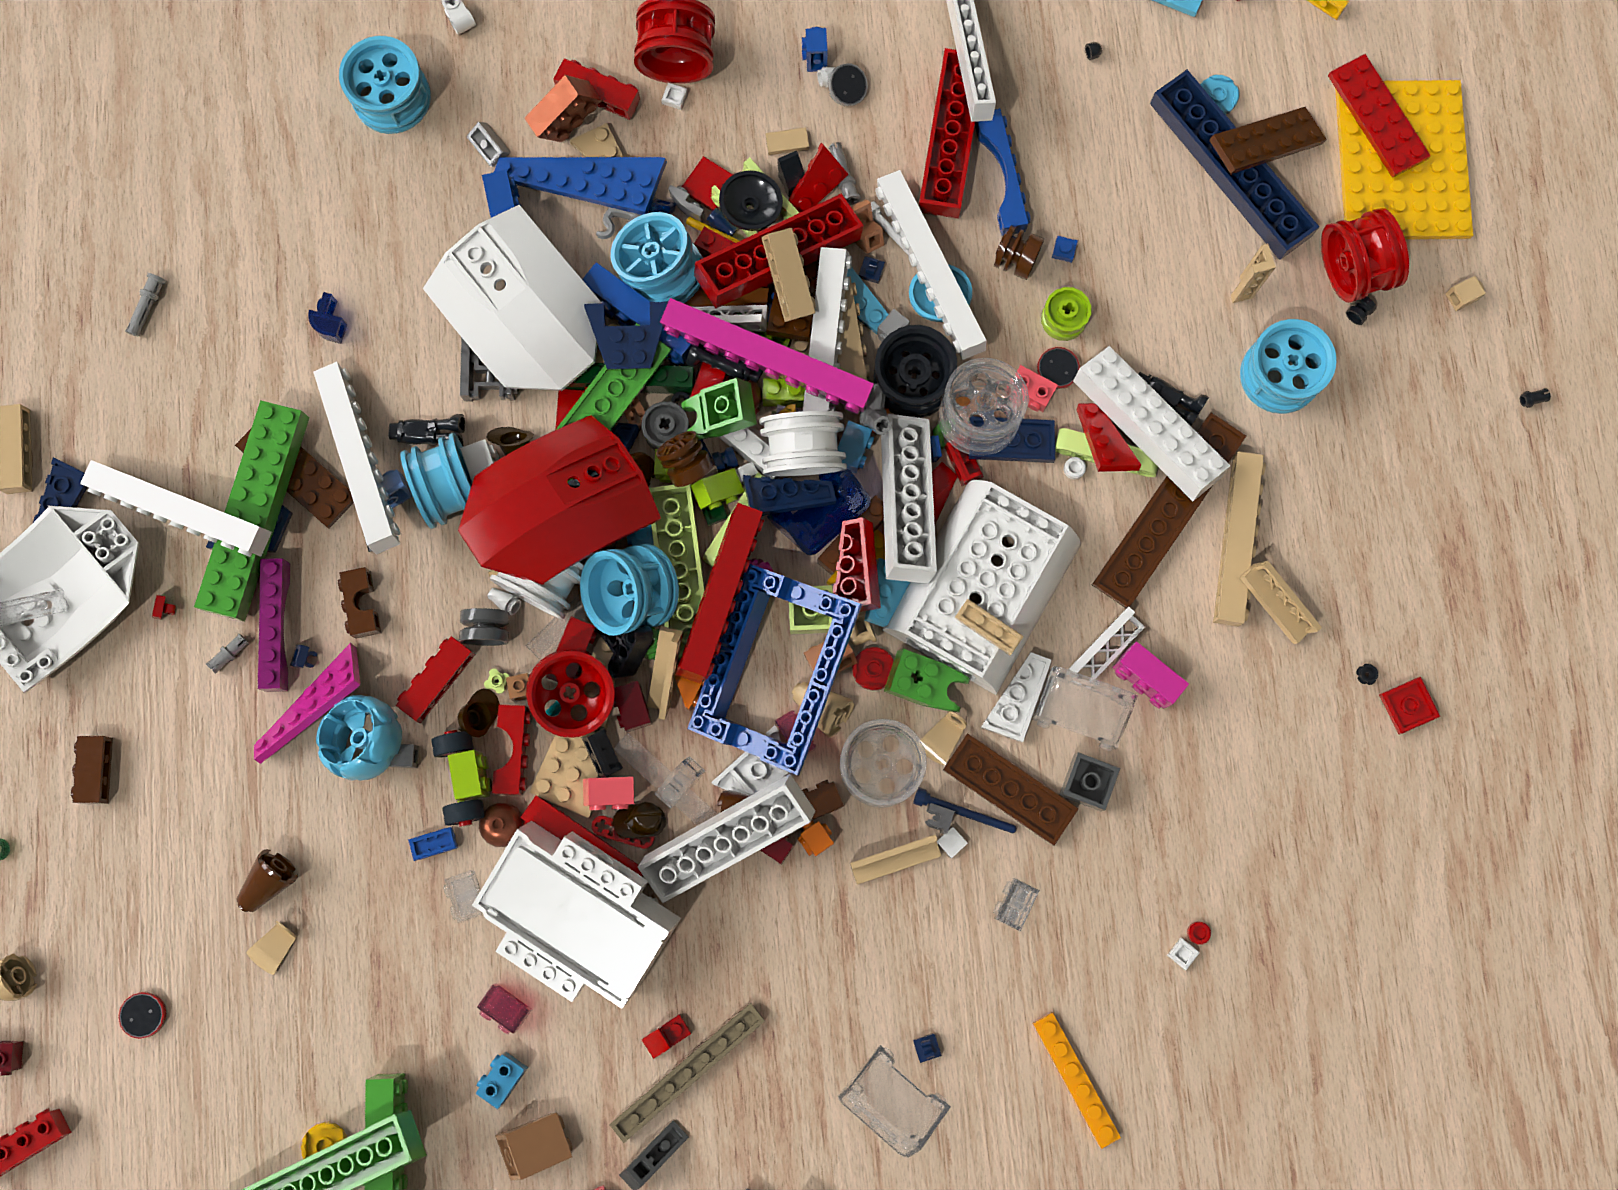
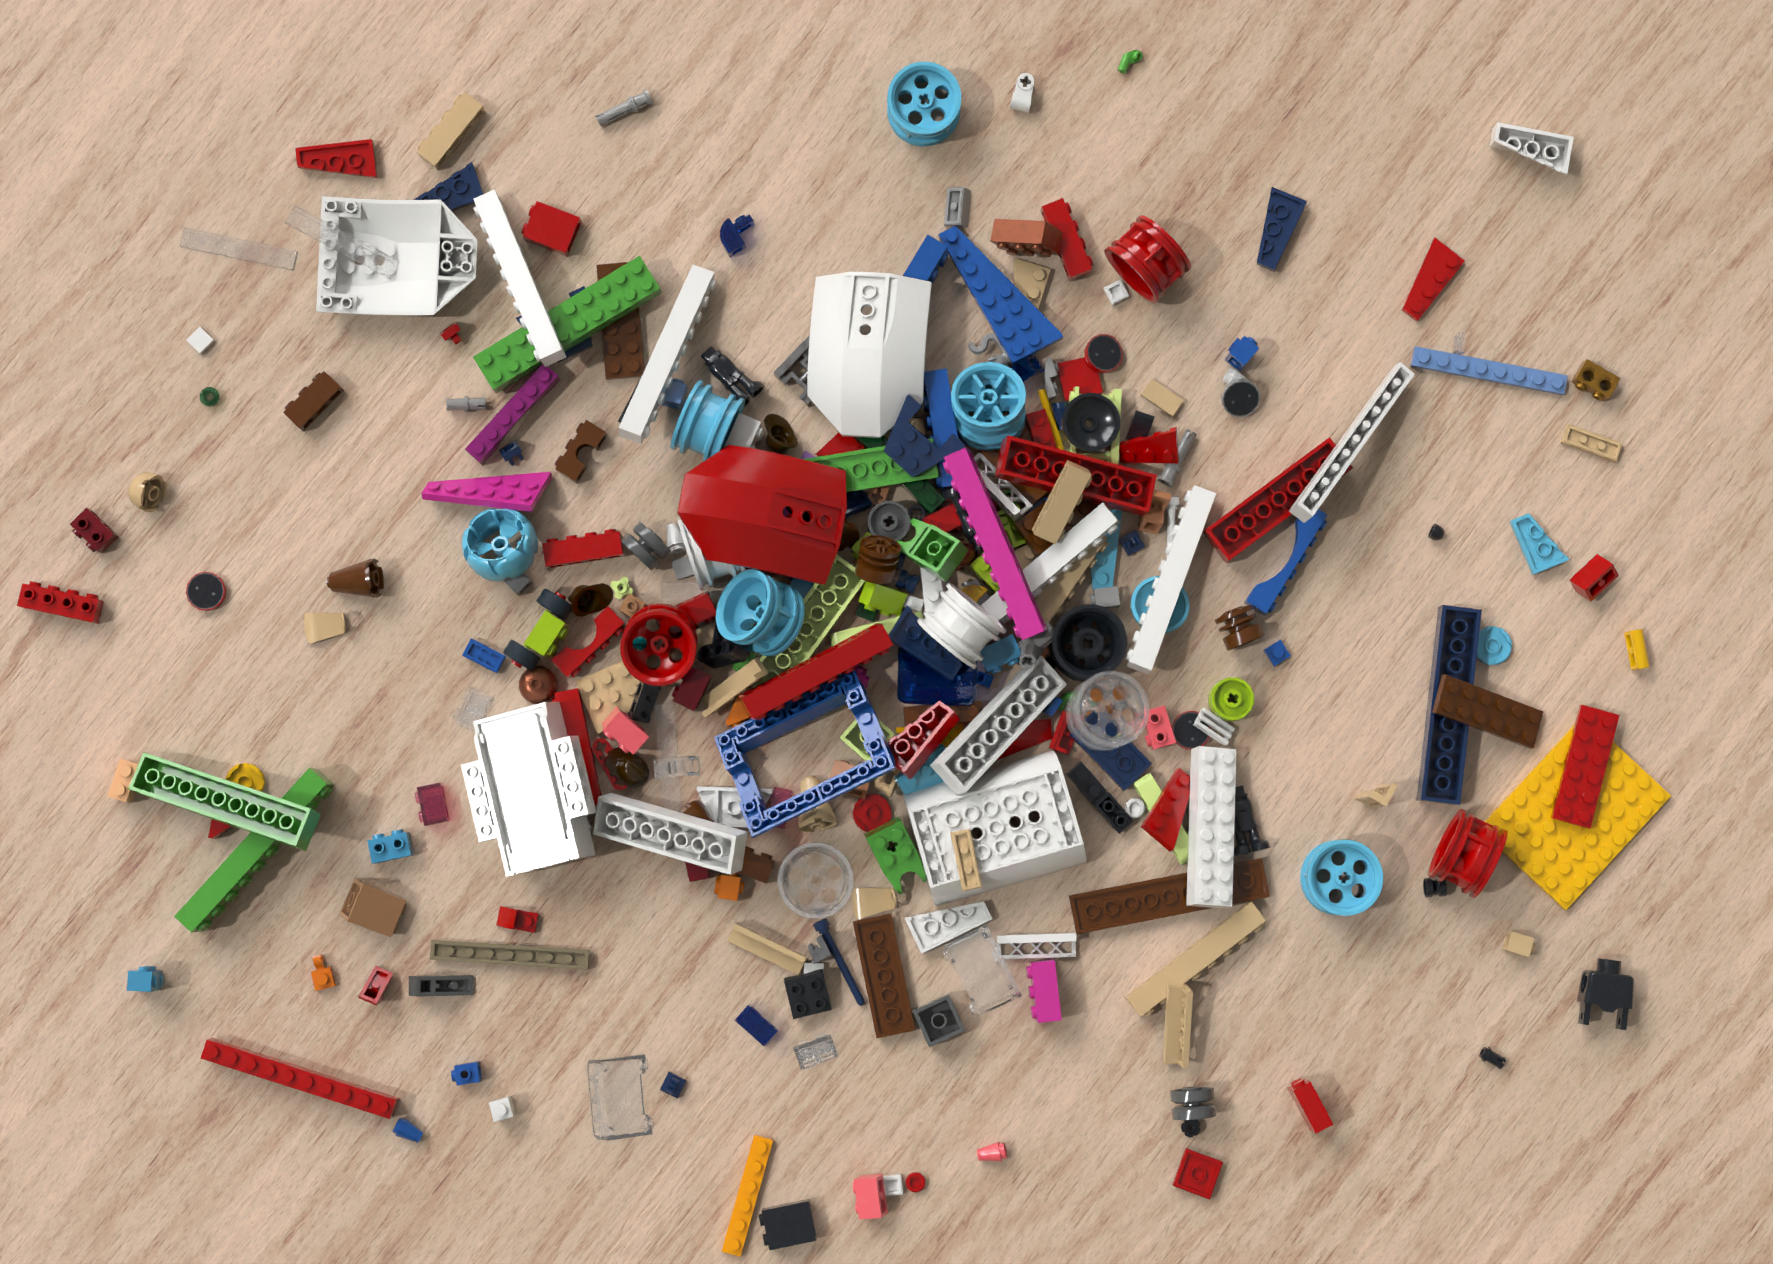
camera: 40 degrees right, 5 degrees up
(169, 450) = (551, 228): none -> red brick
(533, 618) = (682, 568): none -> light grey tile
(709, 148) = (1103, 353): none -> black tile
(863, 475) = (987, 680): none -> blue piece
(947, 930) = (756, 1025): none -> clear blue hinge
(964, 863) = (807, 994): none -> black brick
(1042, 485) = (1099, 797): none -> black slope
(1072, 344) = (1227, 734): none -> white tile
(1133, 1071) = (788, 1224): none -> black brick
(1176, 980) = (870, 1196): none -> coral brick
(1236, 847) = (992, 1152): none -> coral cone
(1353, 652) = (1193, 1107): none -> dark grey wheel
(1442, 565) = (1310, 1105): none -> red brick
(1566, 261) = (1606, 989): none -> black piece

